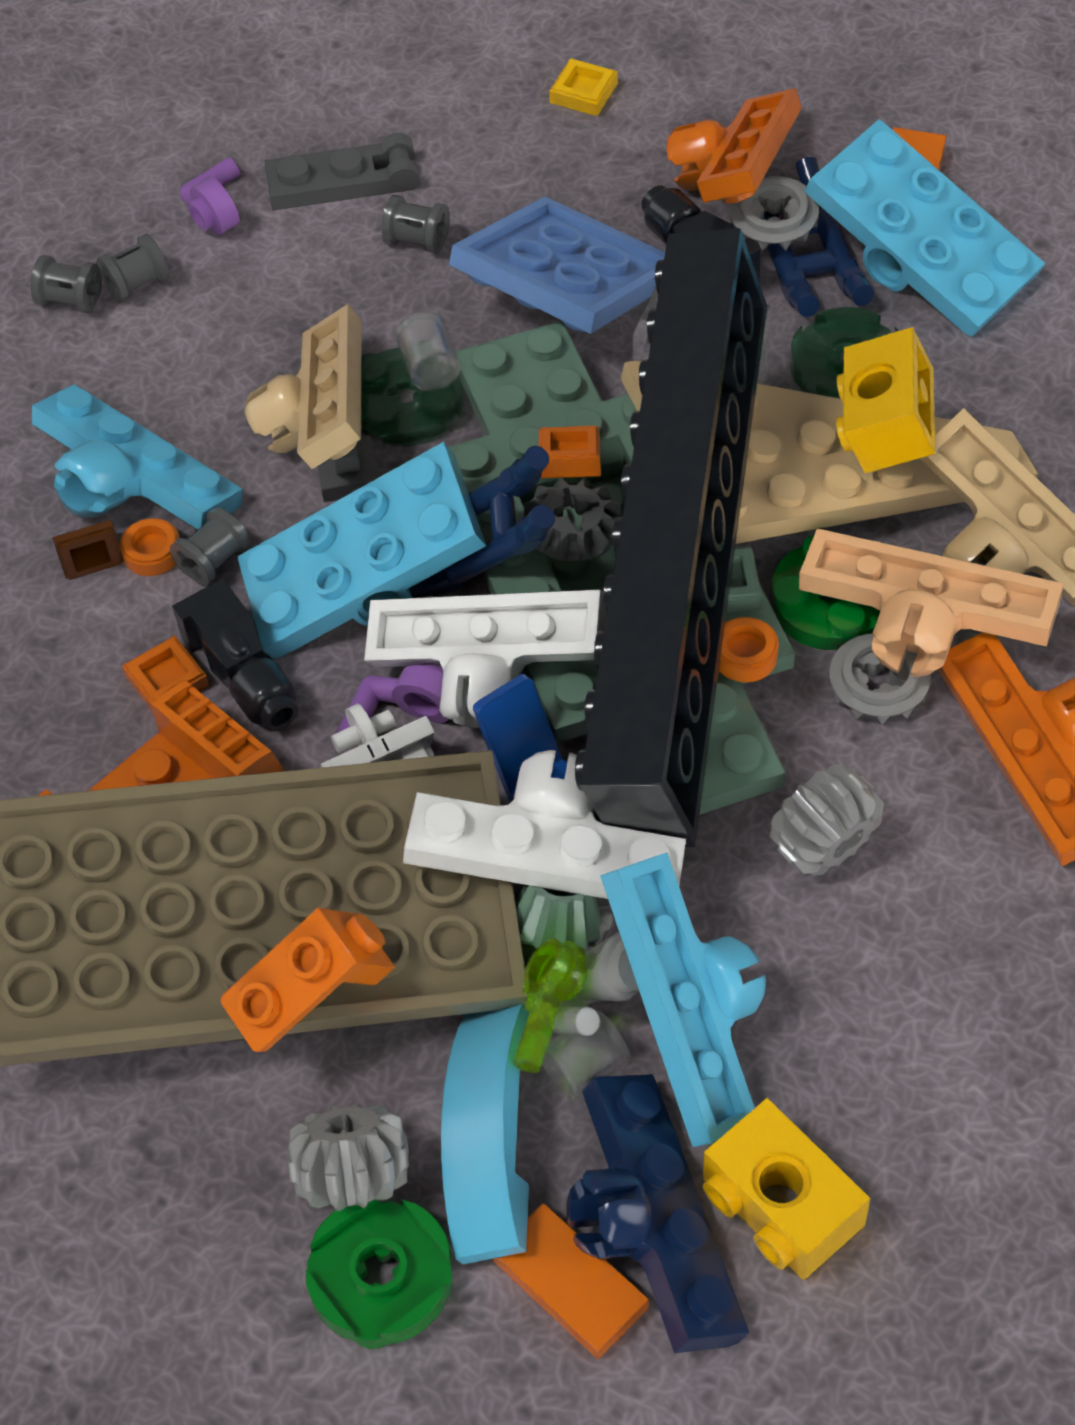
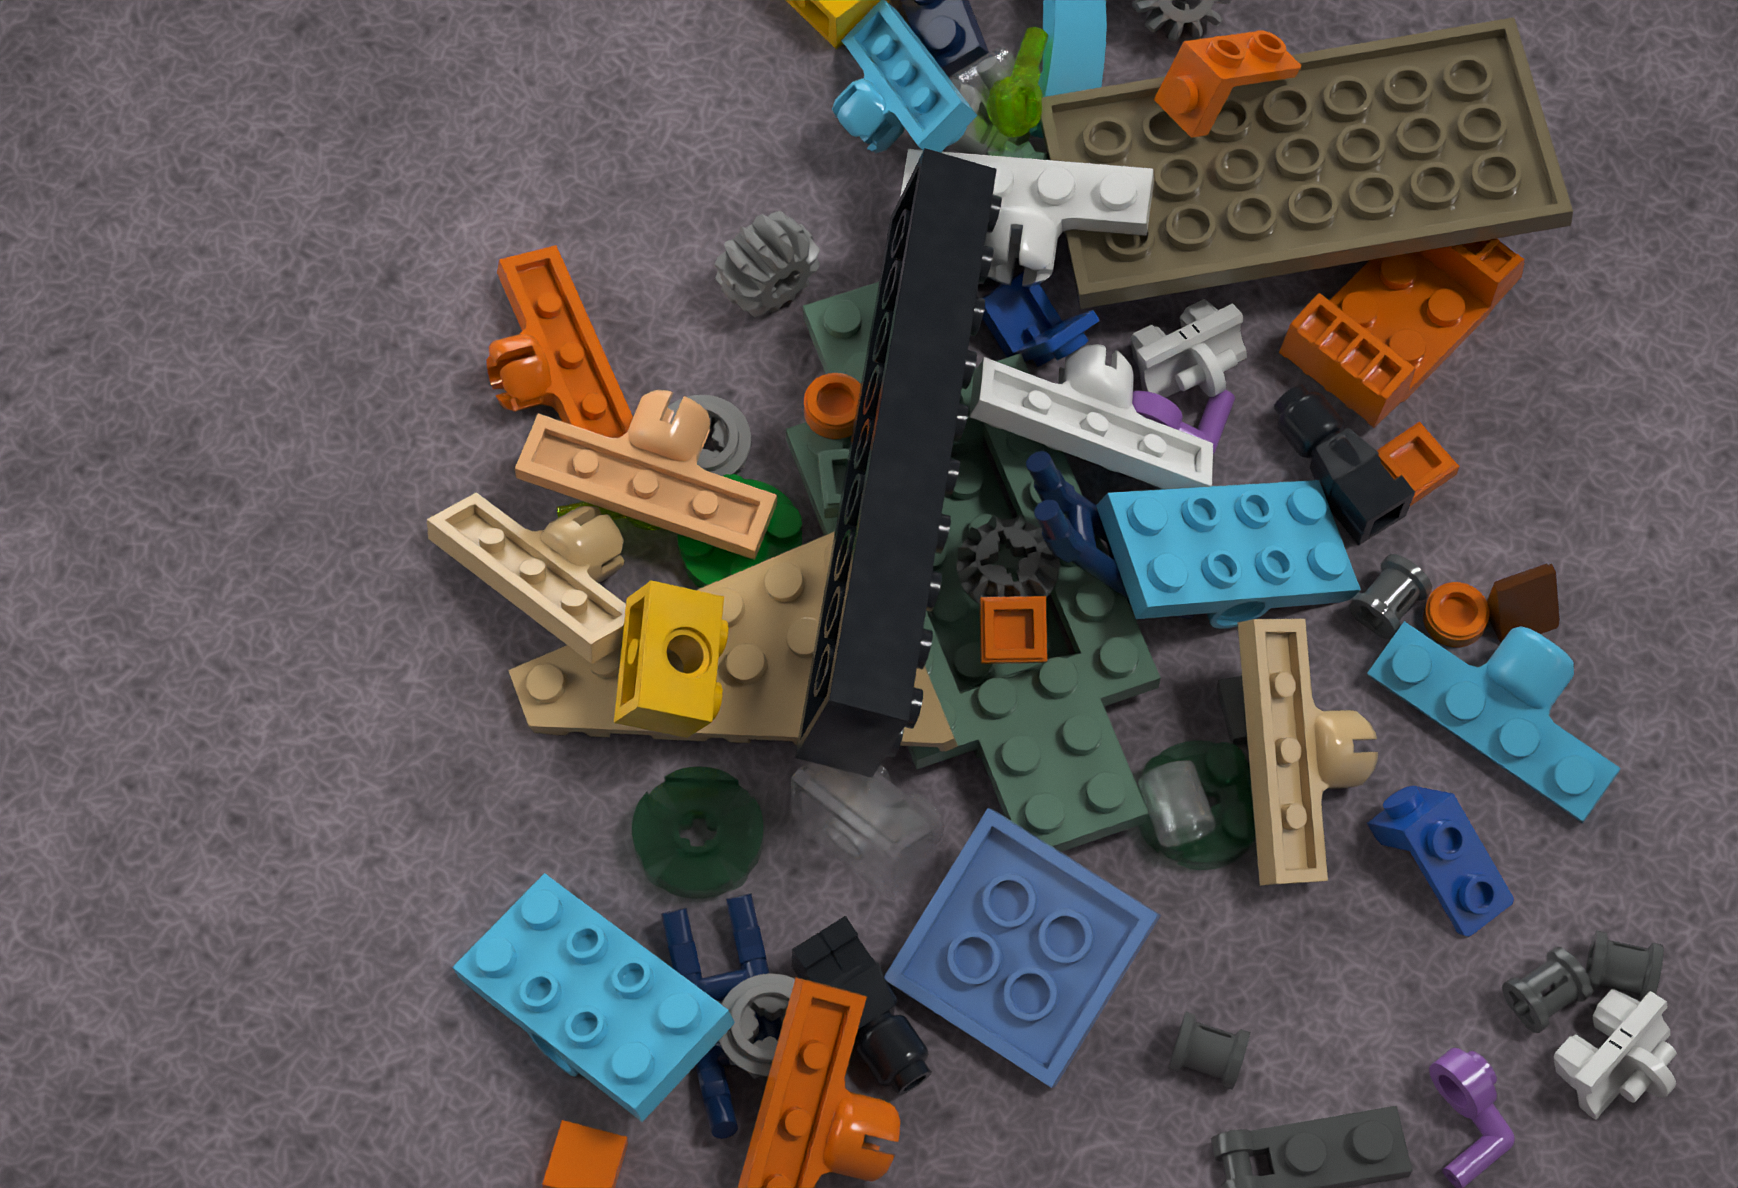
camera: 175 degrees right, 10 degrees up
(81, 218) = (1629, 1060): none -> white hips
(210, 356) = (1447, 853): none -> blue bracket

